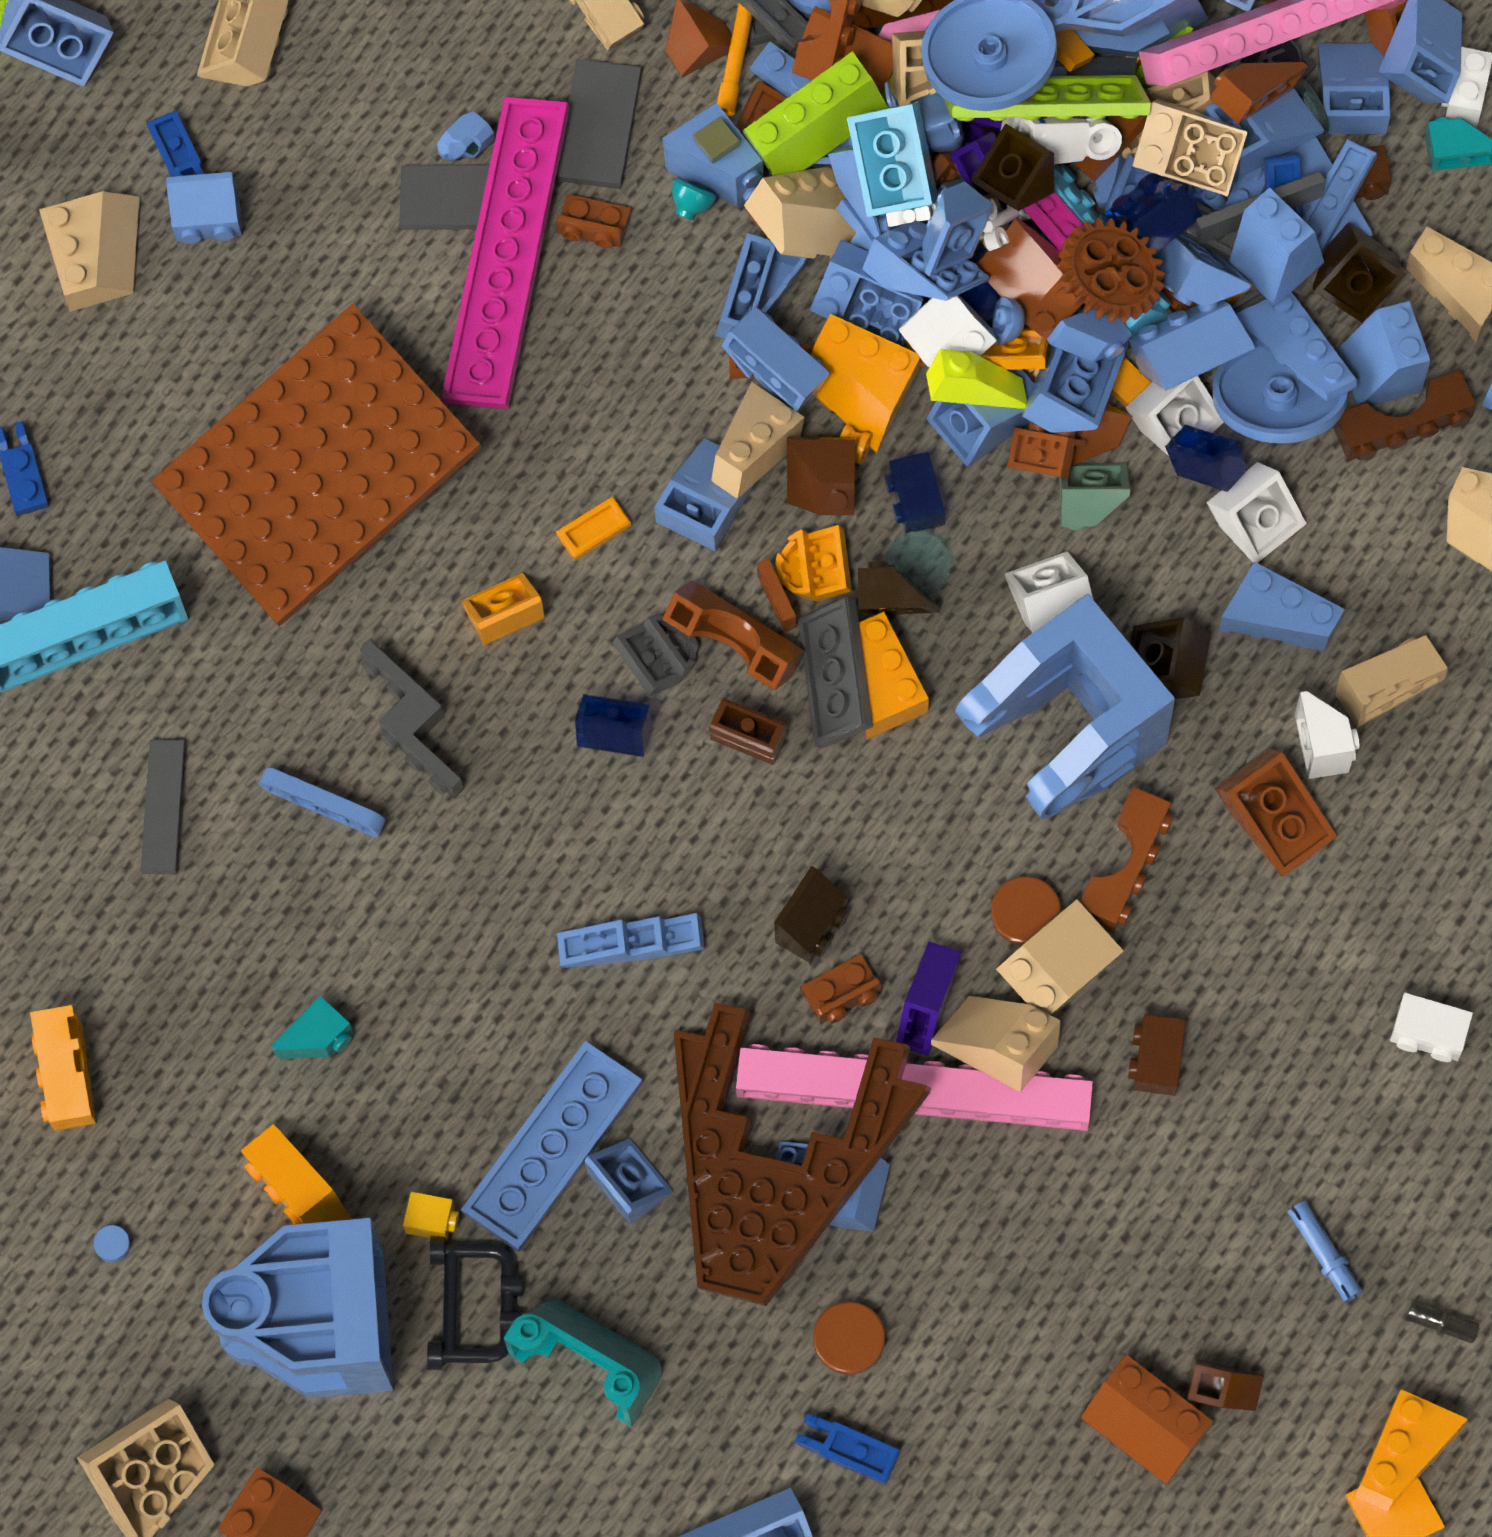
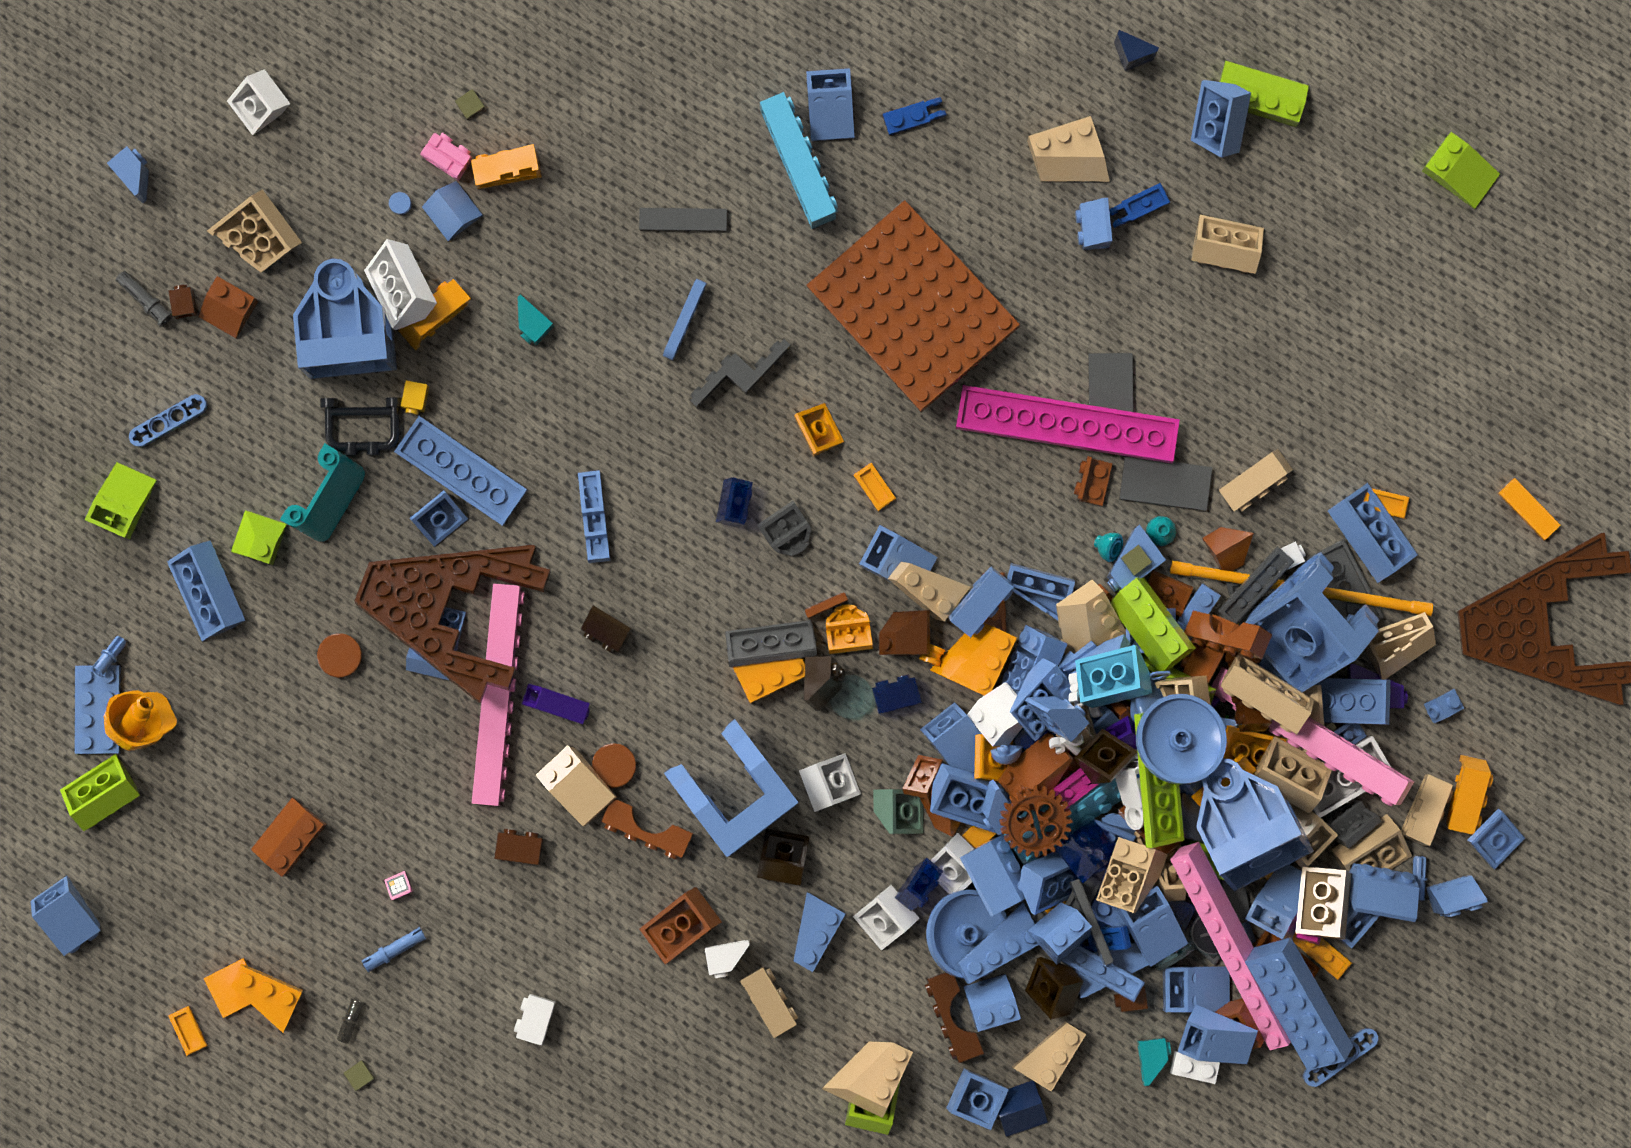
camera: 85 degrees right, 15 degrees up
(39, 1165) = (447, 156): none -> bright pink brick
(129, 1162) = (451, 210): none -> medium blue slope
(244, 1221) = (399, 285): none -> white slope
(465, 138) = (1150, 394): medium blue rock -> none
(654, 1470) = (258, 537): none -> lime slope
(664, 123) = (1161, 530): none -> teal brick
(704, 614) = (785, 599): dark orange arch -> none
(747, 731) = (730, 588): reddish brown brick -> none
(841, 990) = (563, 649): dark orange bracket -> none
(851, 1449) = (270, 657): blue hinge -> none
(973, 380) = (962, 732): neon yellow slope -> none
(1000, 1038) = (525, 746): tan slope -> none
(1222, 1245) = (398, 885): none -> slope
(1223, 1386) = (307, 883): reddish brown slope -> none
(1254, 87) = (1170, 917): dark orange slope -> none

